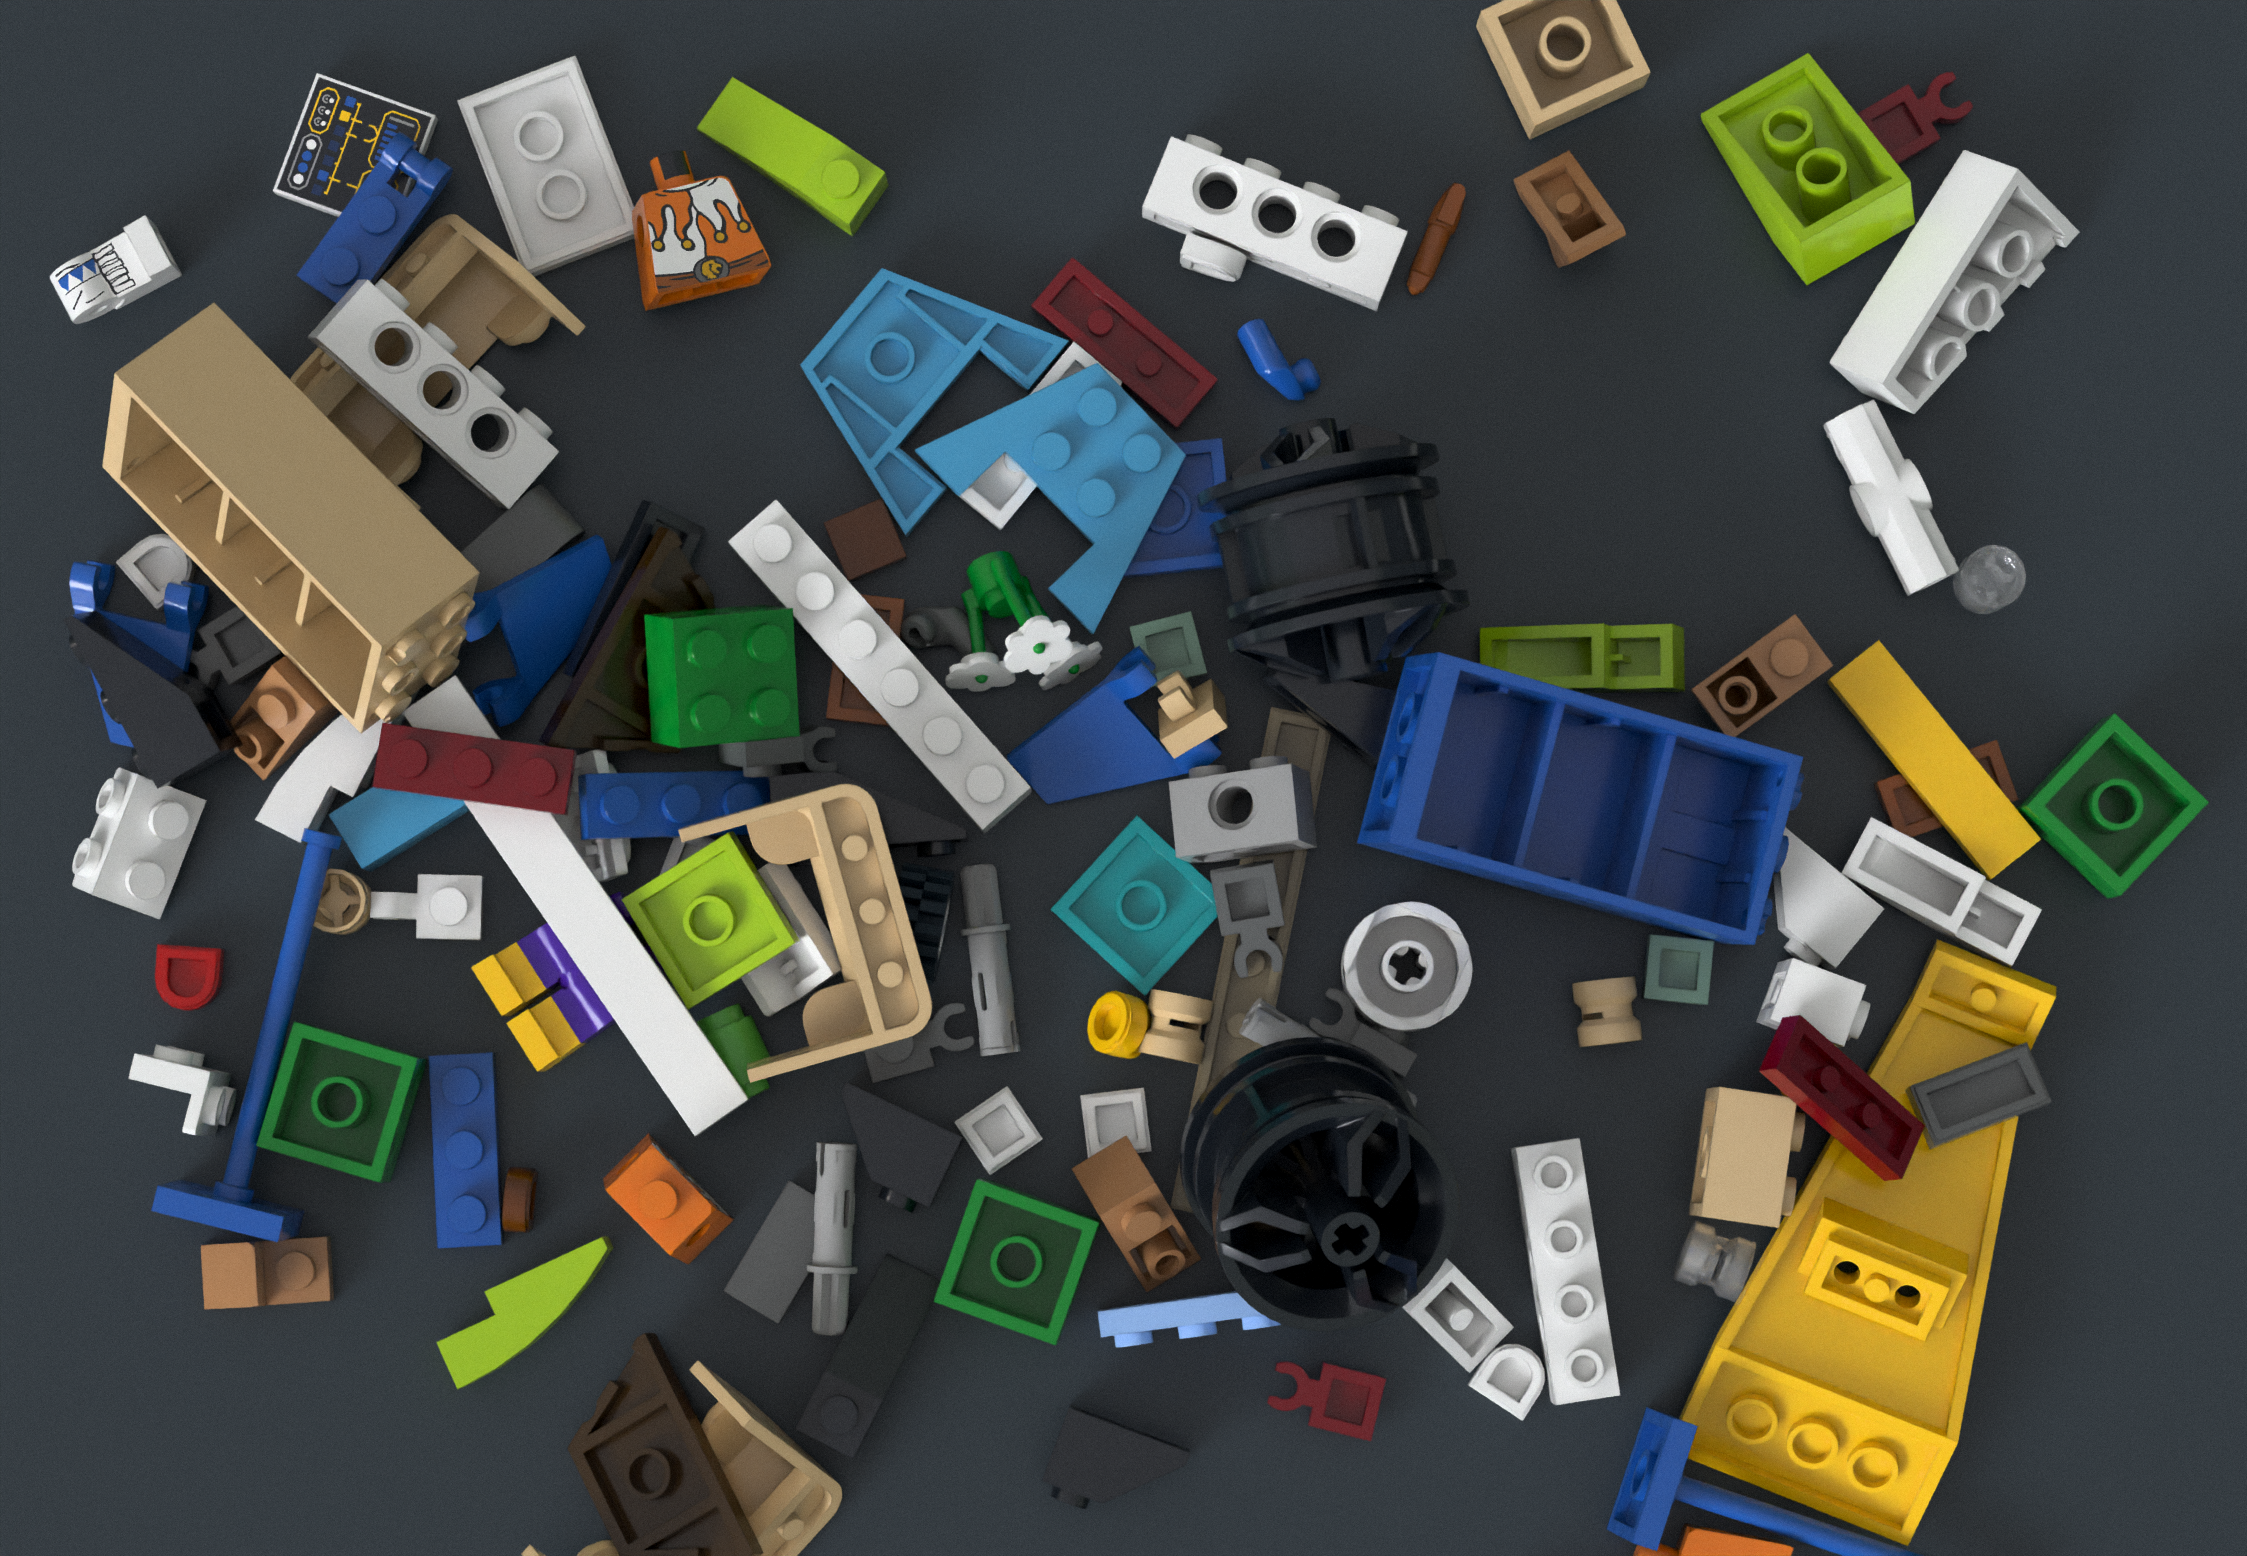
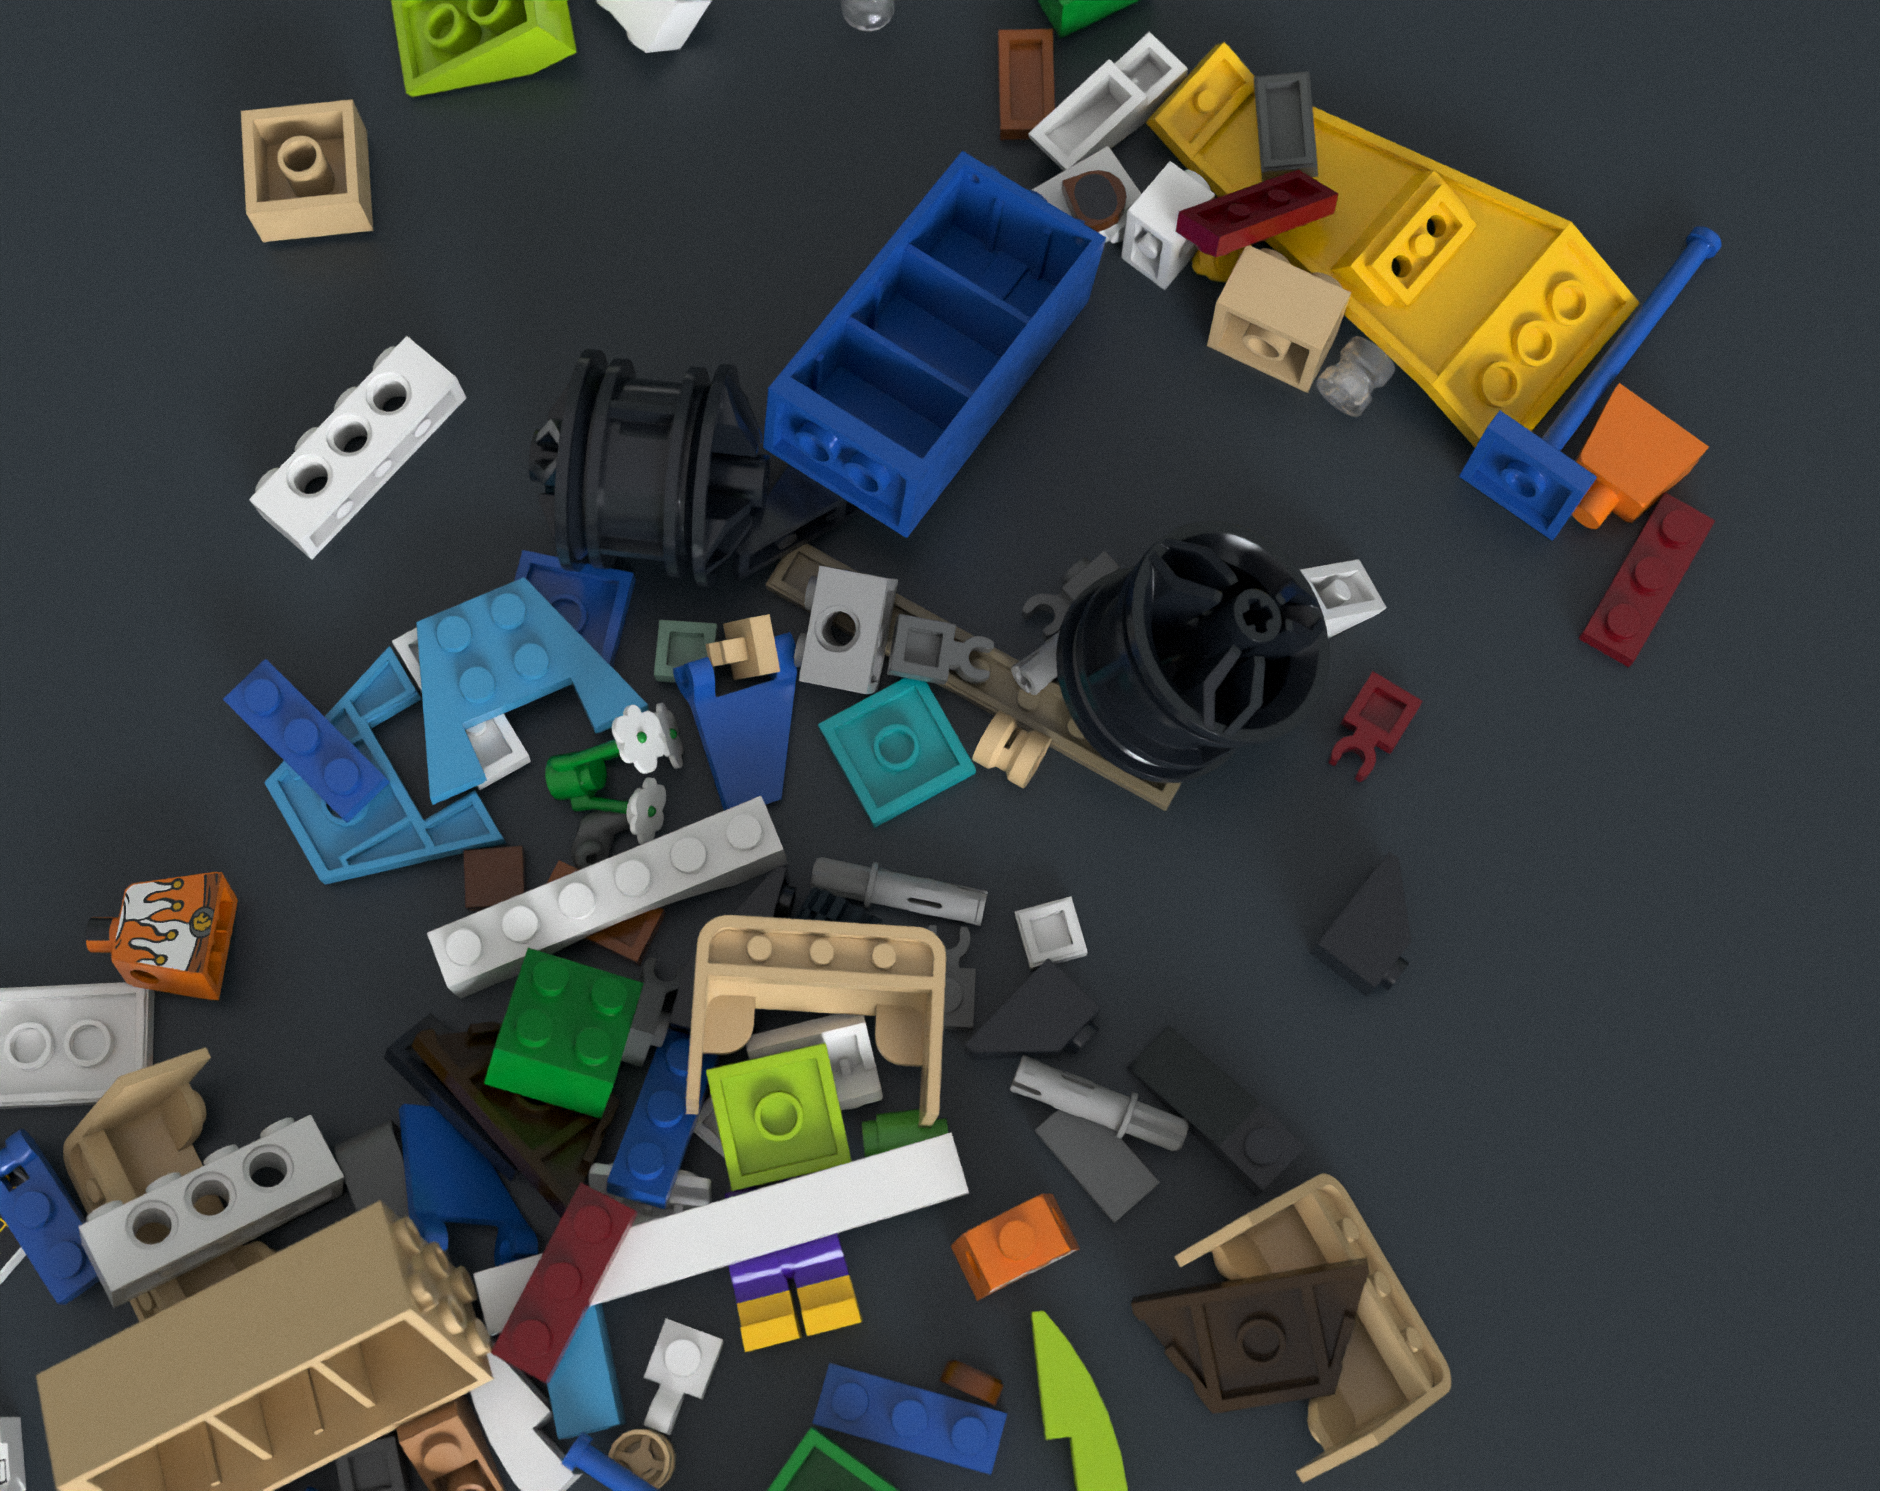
camera: 70 degrees left, 10 degrees down
(795, 155) = (138, 825): lime slope -> none
(937, 295) = (306, 740): none -> blue plate
(1017, 1261) = (1172, 946): green brick -> none
(1113, 1116) = (1077, 831): white tile -> none
(1118, 1024) = (993, 798): yellow tile -> none
(1124, 343) = (375, 619): dark red plate -> none
(1136, 1213) = (1161, 835): medium nougat slope -> none
(1191, 1315) = (1266, 816): light blue plate -> none
(1211, 258) = (366, 508): white tile -> none
(1271, 364) = (475, 489): blue arm -> none
(1440, 227) = (418, 323): dark orange piece -> none
(1441, 956) = (1025, 509): white brick -> none
(1510, 1378) = (1402, 575): white tile -> none
(1565, 1271) = (1327, 496): white brick -> none
(1568, 209) = (442, 209): medium nougat slope -> none
(1590, 656) = (825, 278): lime slope -> none
(1607, 1011) = (1105, 390): tan wheel -> none
(1678, 969) = (1101, 330): sand green plate -> none
(1762, 677) = (880, 175): medium nougat slope -> none
(1809, 916) = (1095, 198): none -> tile
(1890, 497) = (773, 45): white piece -> none
(1933, 760) = (997, 77): yellow tile -> none

